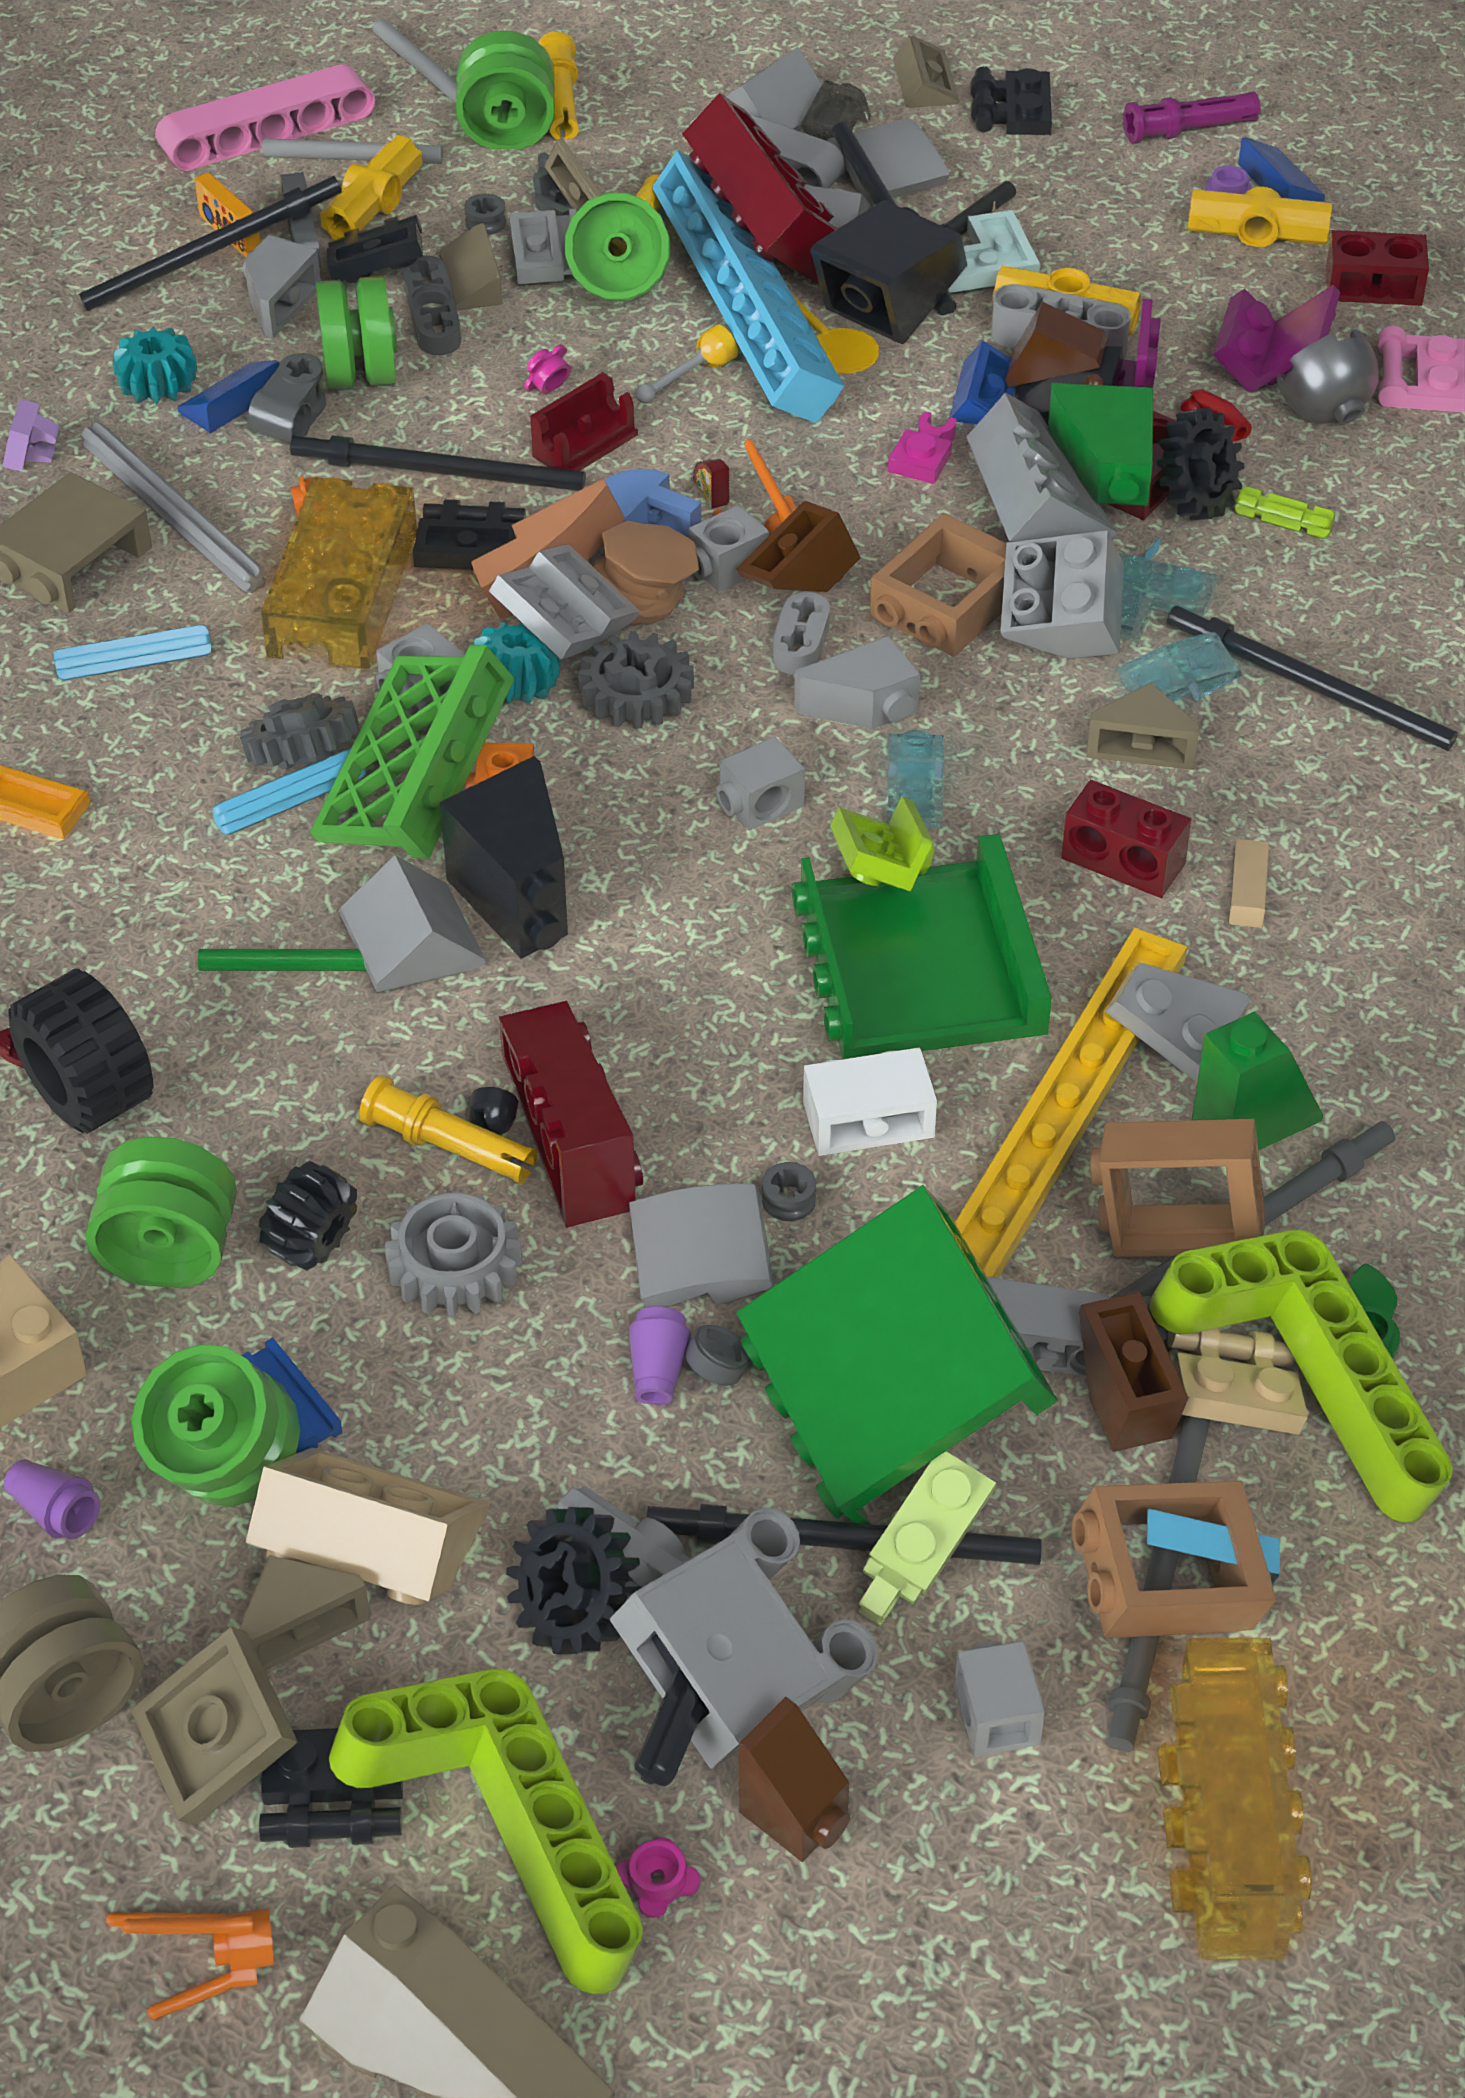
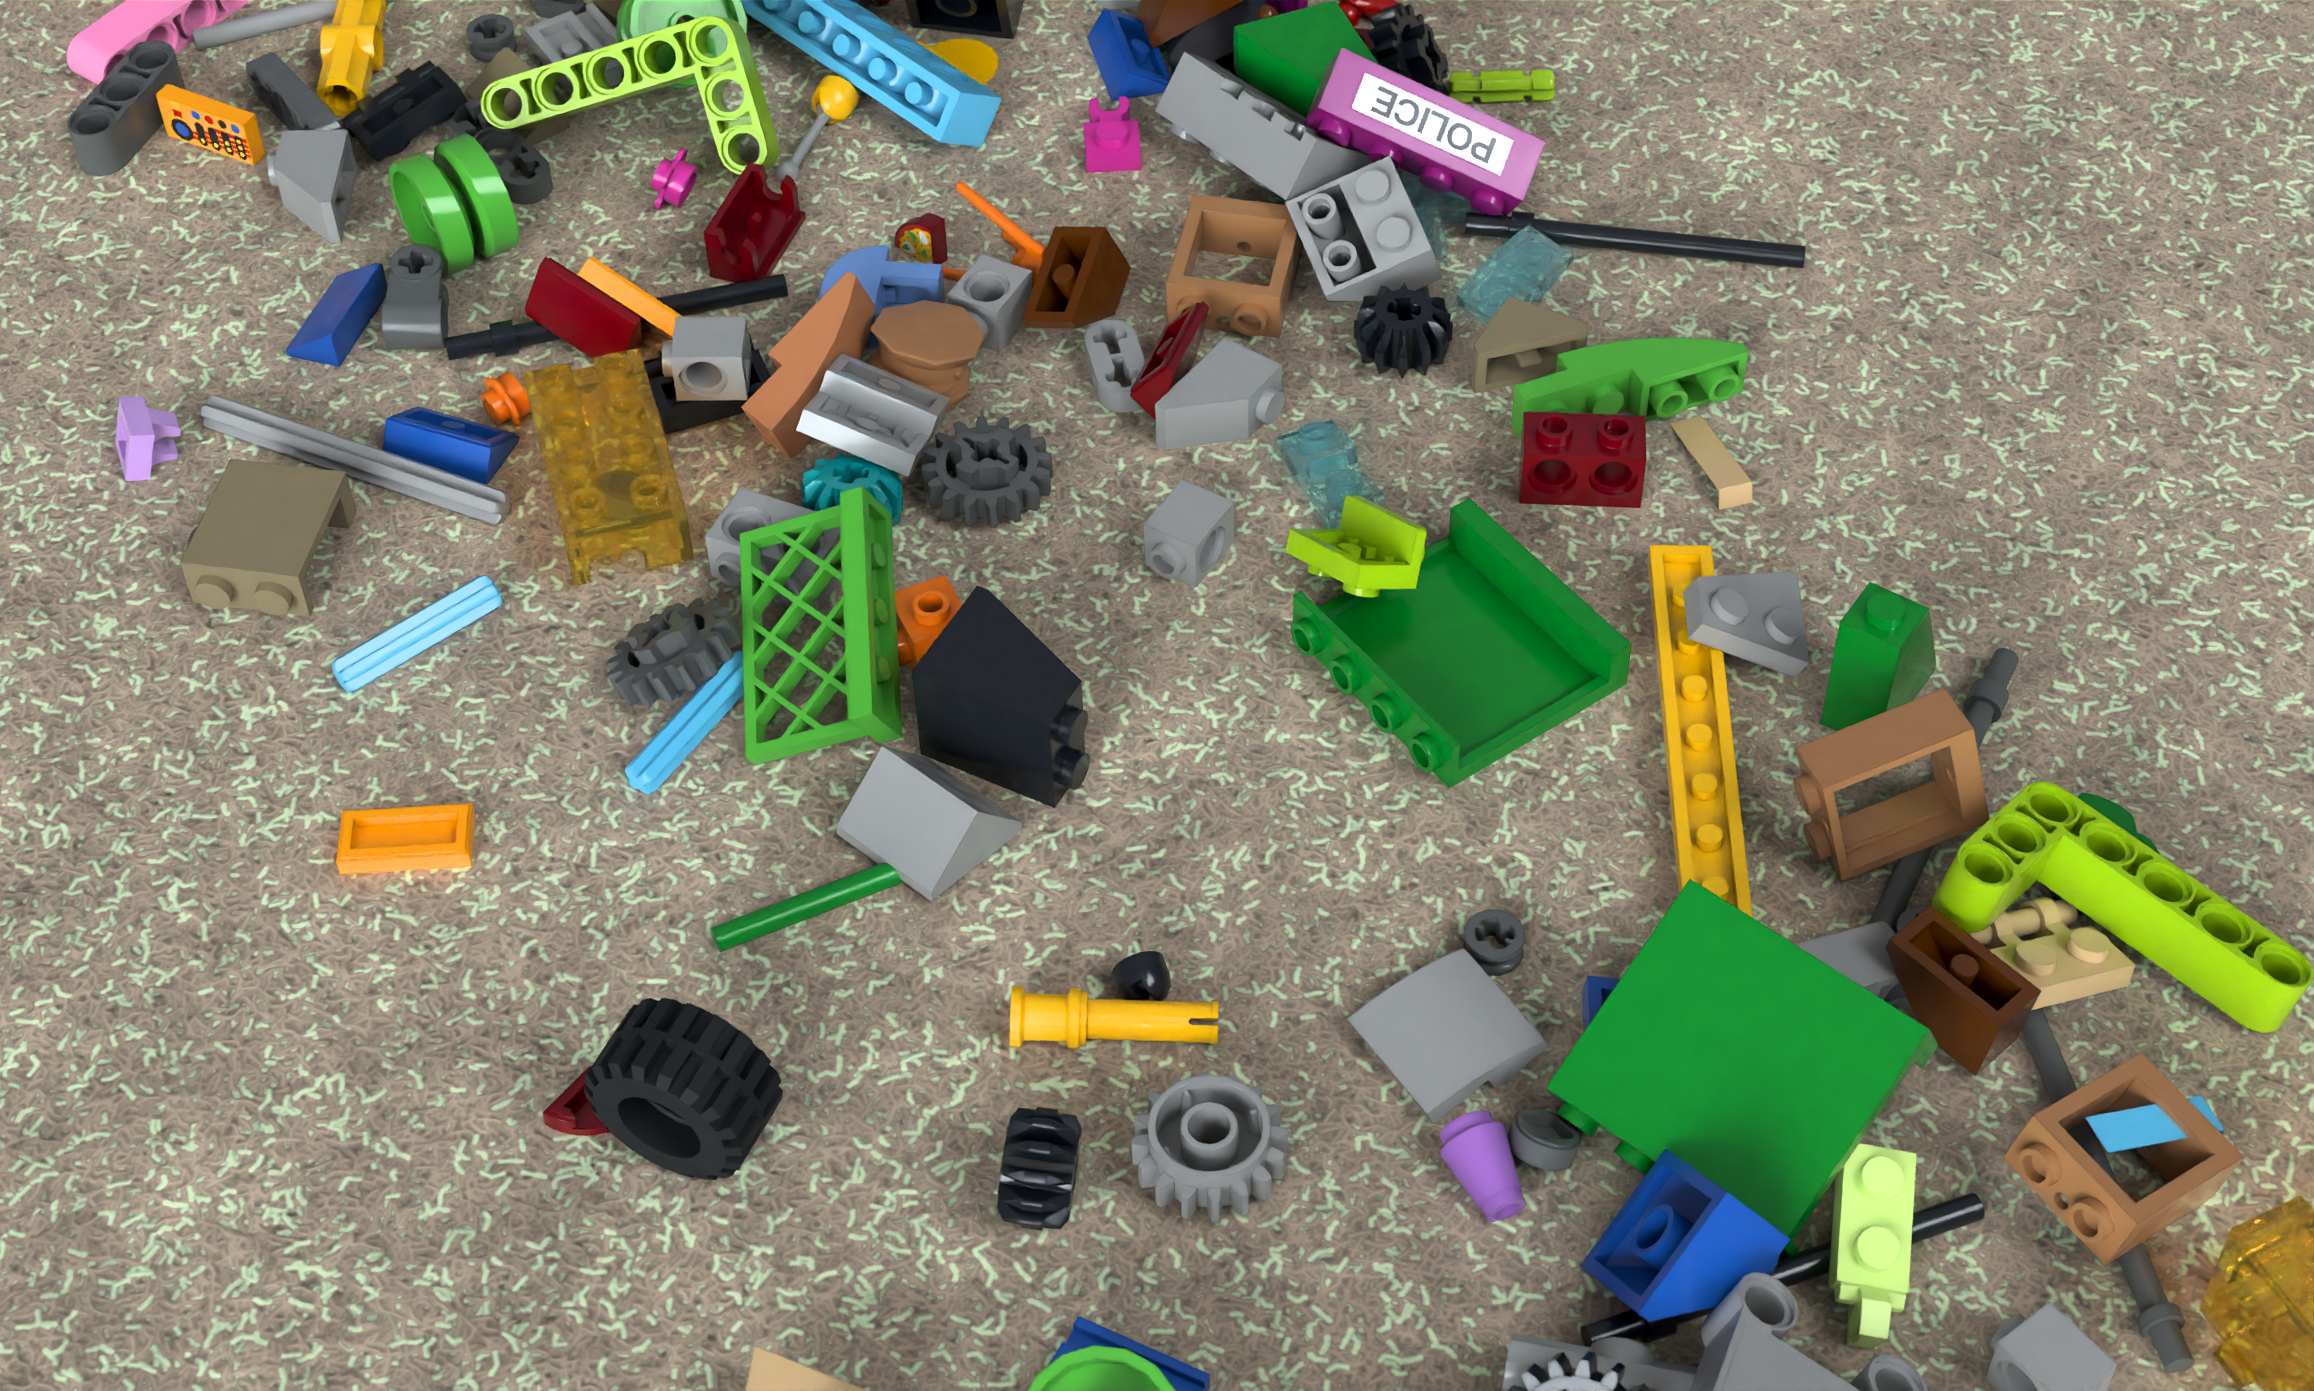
camera: 25 degrees left, 0 degrees up
(154, 365) = (236, 312): teal gear -> none
(161, 1212) = (888, 1230): bright green wheel -> none
(167, 183) = (123, 109): none -> dark grey beam
(246, 517) = (449, 443): none -> blue slope
(293, 204) = (291, 90): black bar -> none
(402, 451) = (581, 312): none -> dark red slope
(447, 453) = (631, 296): none -> light orange tile
(469, 515) = (709, 358): none -> light grey brick
(558, 274) = (642, 76): none -> lime beam
(571, 1113) = (1234, 944): dark red wedge -> none
(759, 1466) = (1681, 1243): none -> blue slope
(847, 635) = (1170, 357): none -> dark red slope
(869, 1101) = (1515, 817): white brick -> none
(1052, 683) = (1403, 330): none -> black gear
(1157, 523) = (1424, 133): none -> brick
(1228, 788) = (1637, 375): none -> bright green slope

